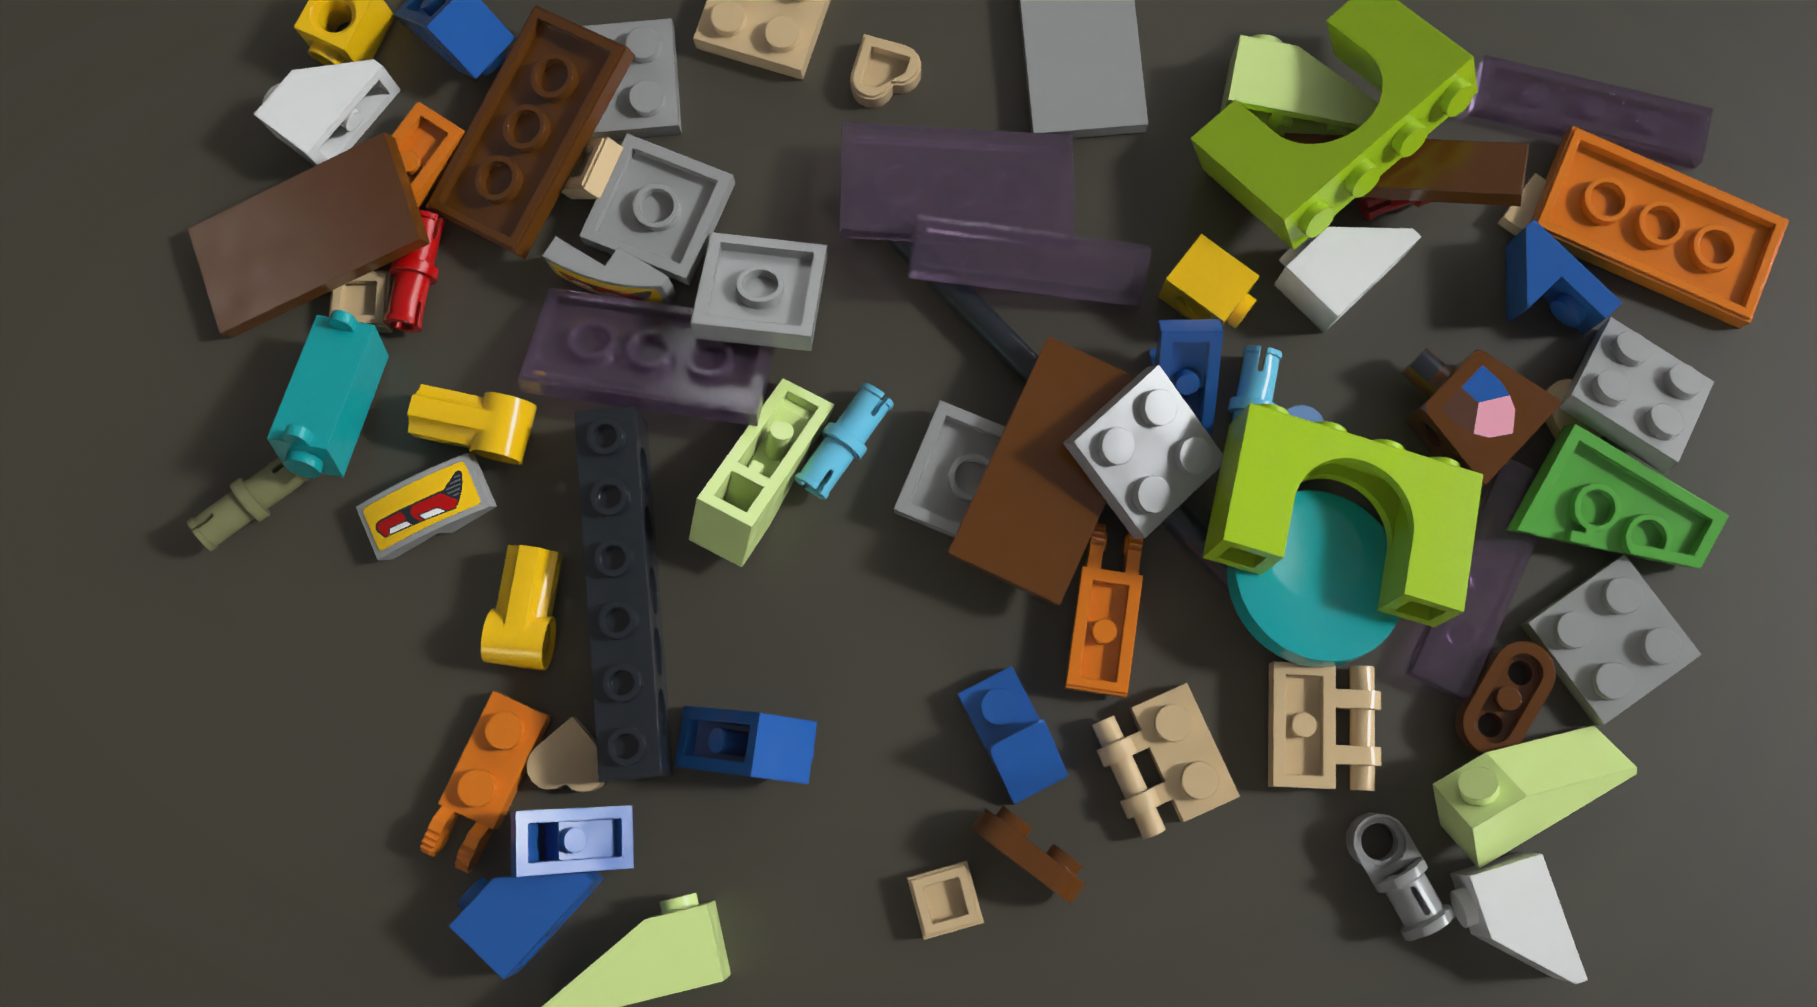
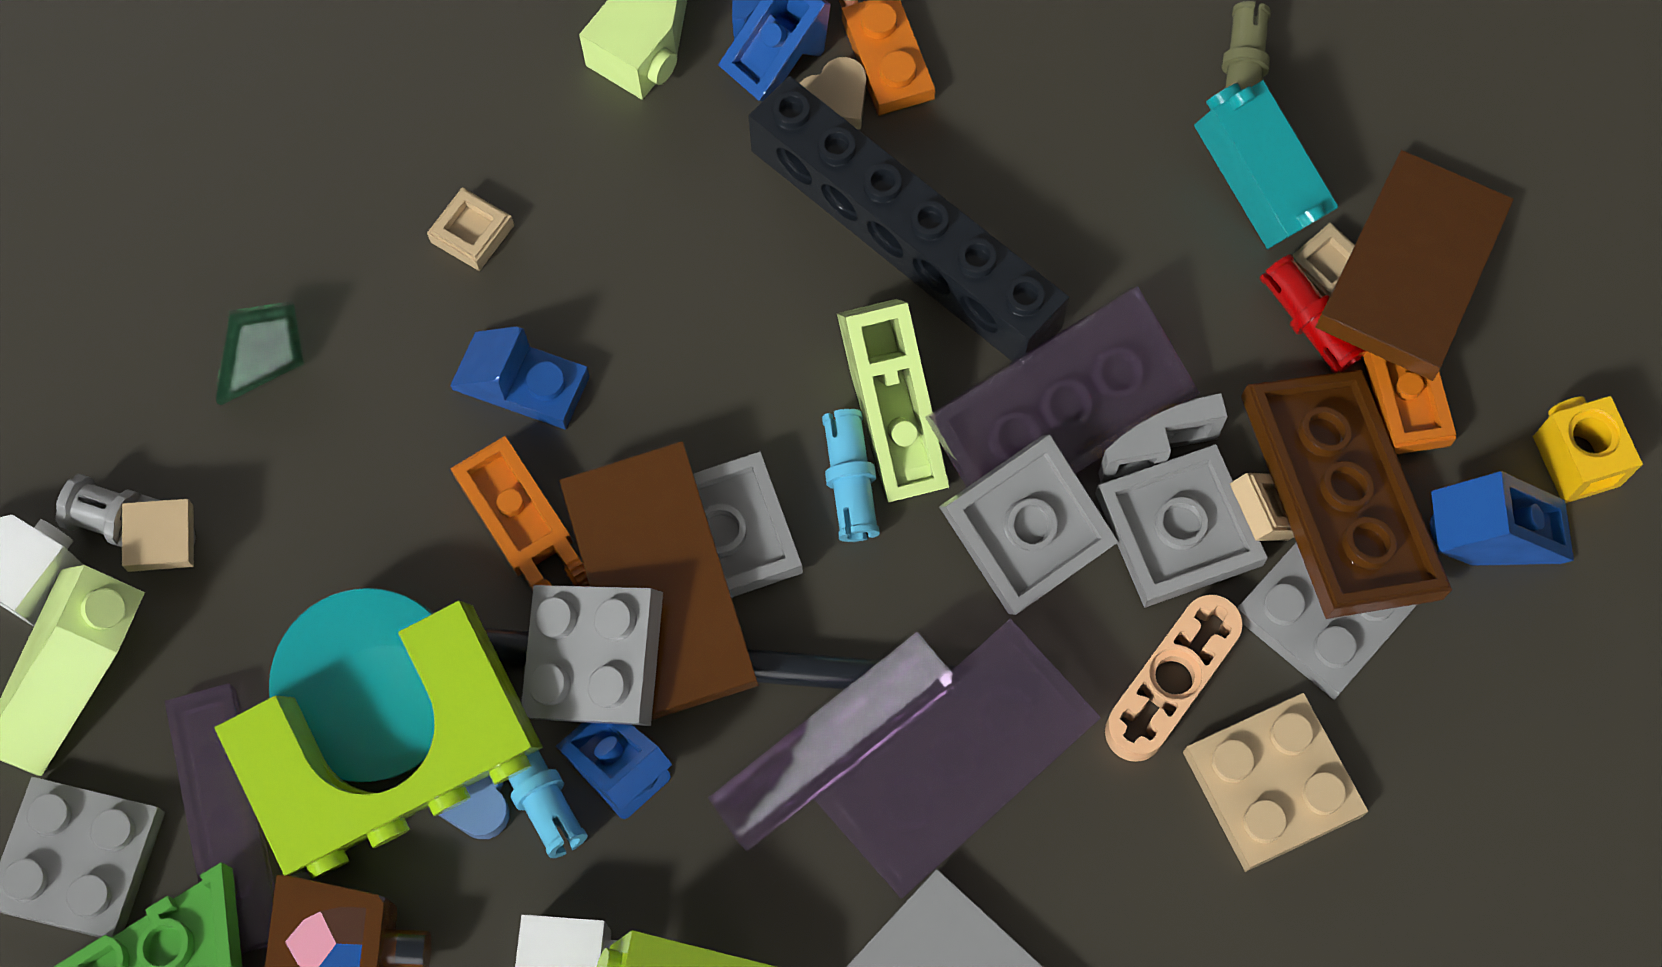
camera: 135 degrees right, 10 degrees down
(327, 107) = (1516, 363): white slope -> none
(425, 505) = (1116, 164): slope -> none
(487, 425) = (1135, 252): yellow piece -> none
(522, 624) = (962, 145): yellow piece -> none
(743, 106) = (1185, 631): none -> light nougat beam
(746, 744) = (711, 200): blue slope -> none
(882, 70) = (1121, 816): tan tile -> none
(1052, 868) = (450, 296): reddish brown plate -> none
(1182, 754) = (373, 473): tan plate -> none
(1194, 934) = (257, 349): none -> clear green piece
(1210, 285) = (659, 860): yellow brick -> none
(1304, 726) = (285, 563): tan plate -> none
(1388, 828) = (157, 535): none -> tan tile
(1506, 703) = (130, 731): reddish brown plate -> none

